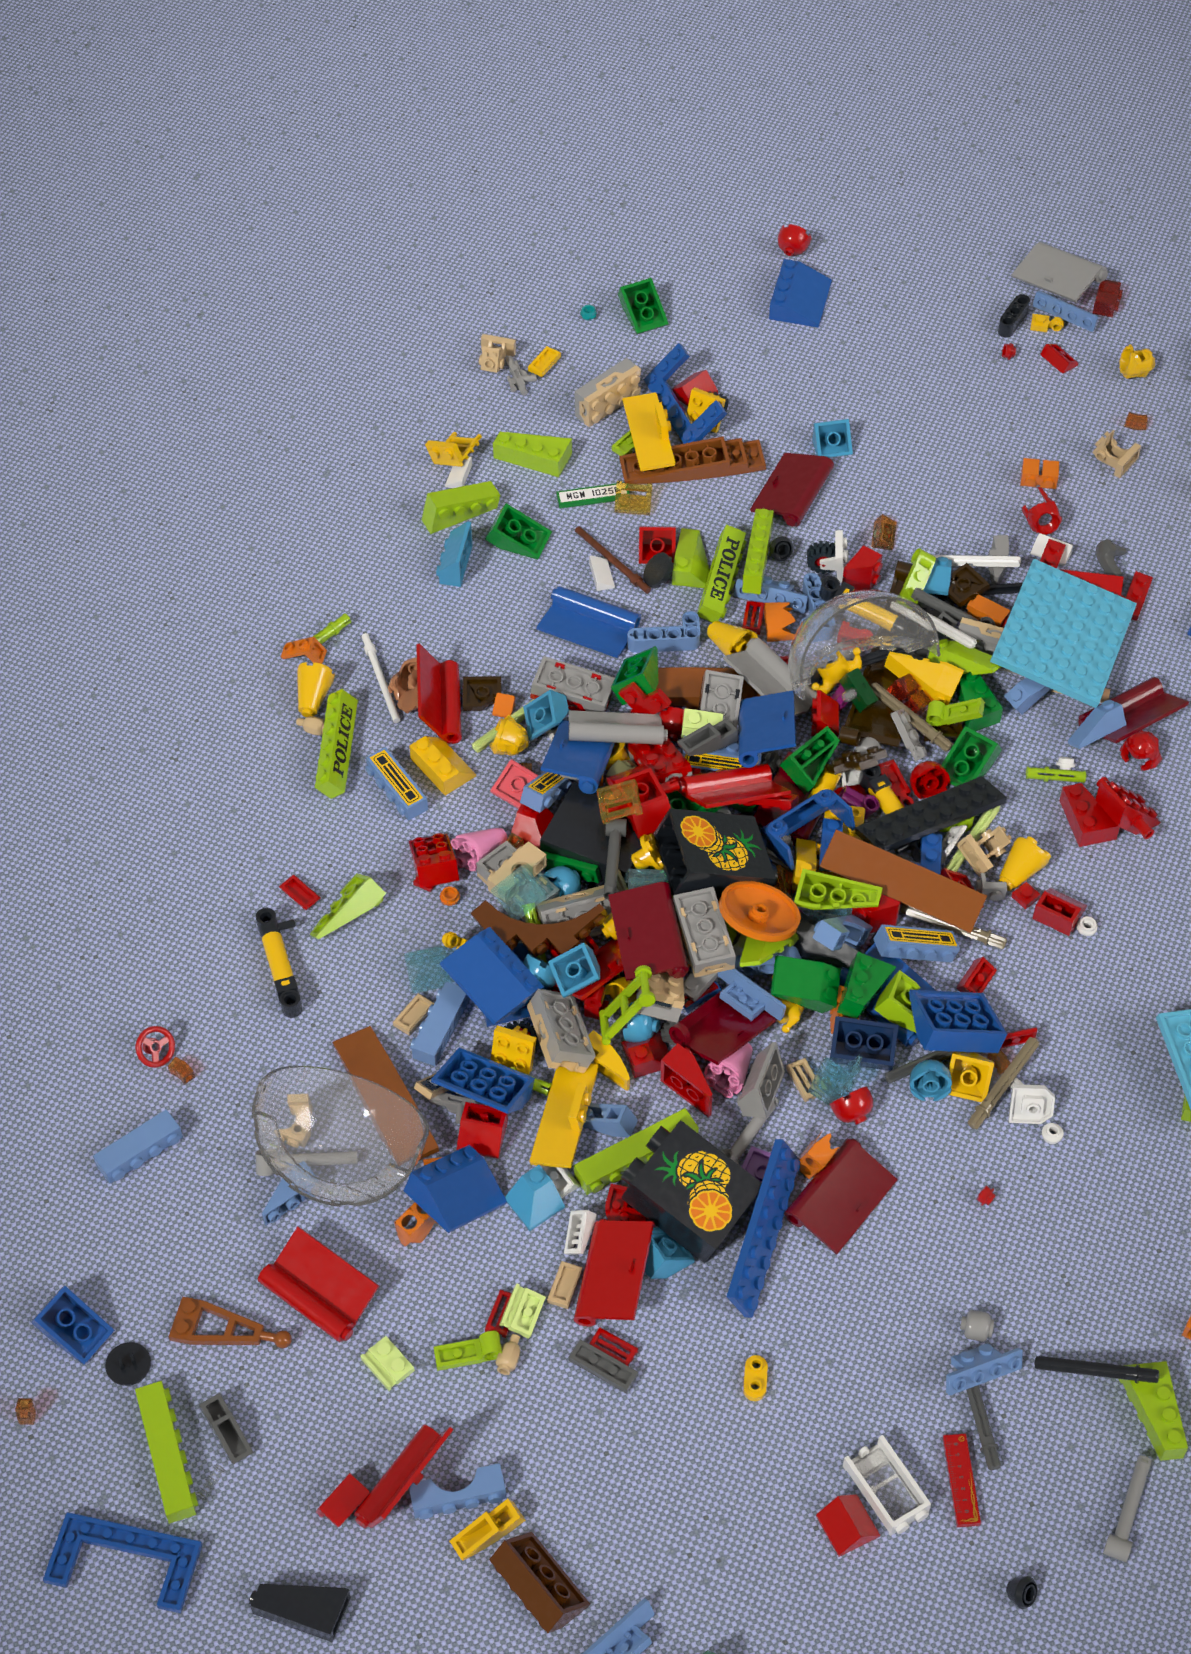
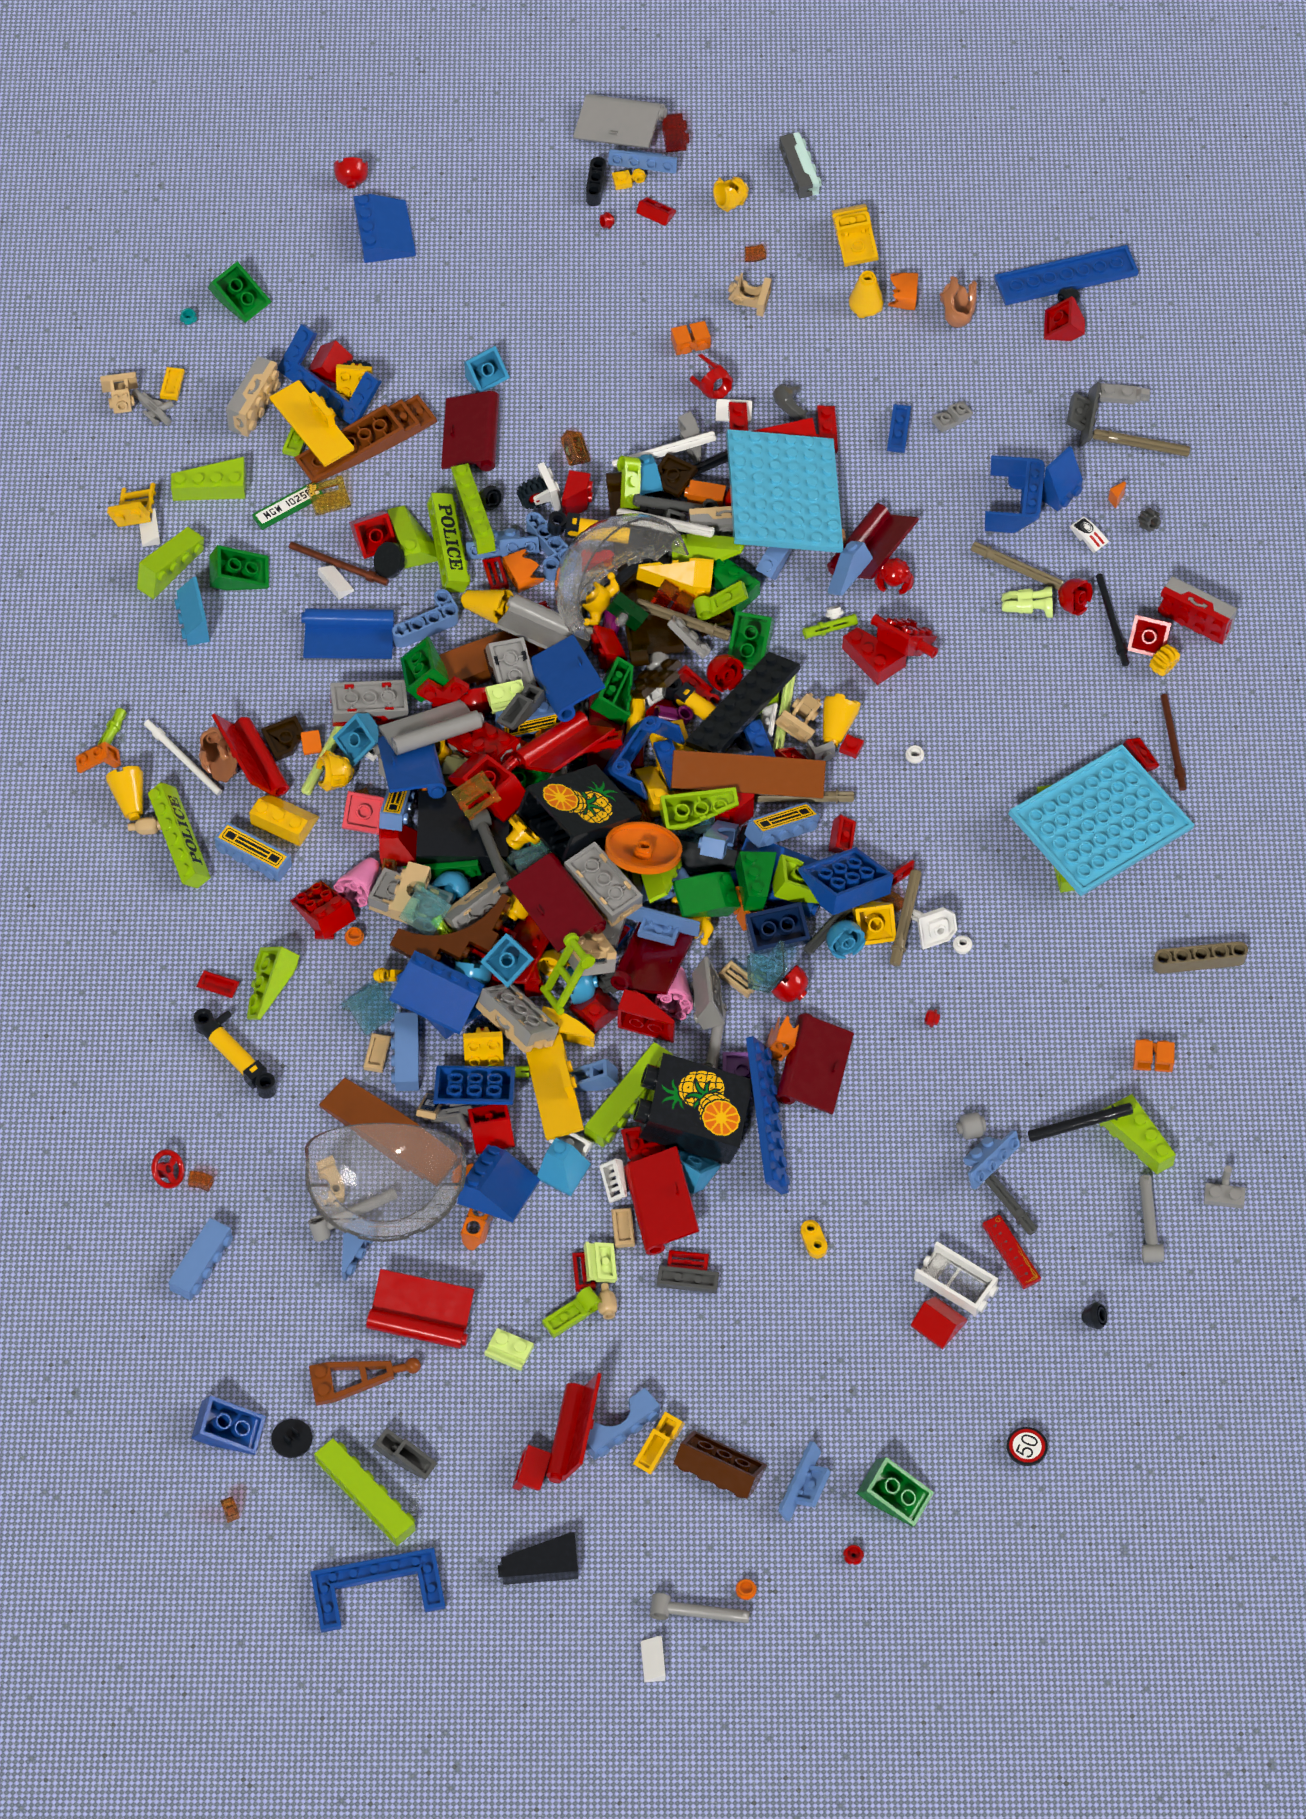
camera: 25 degrees left, 5 degrees up
(1058, 911) = (886, 750): red slope -> none

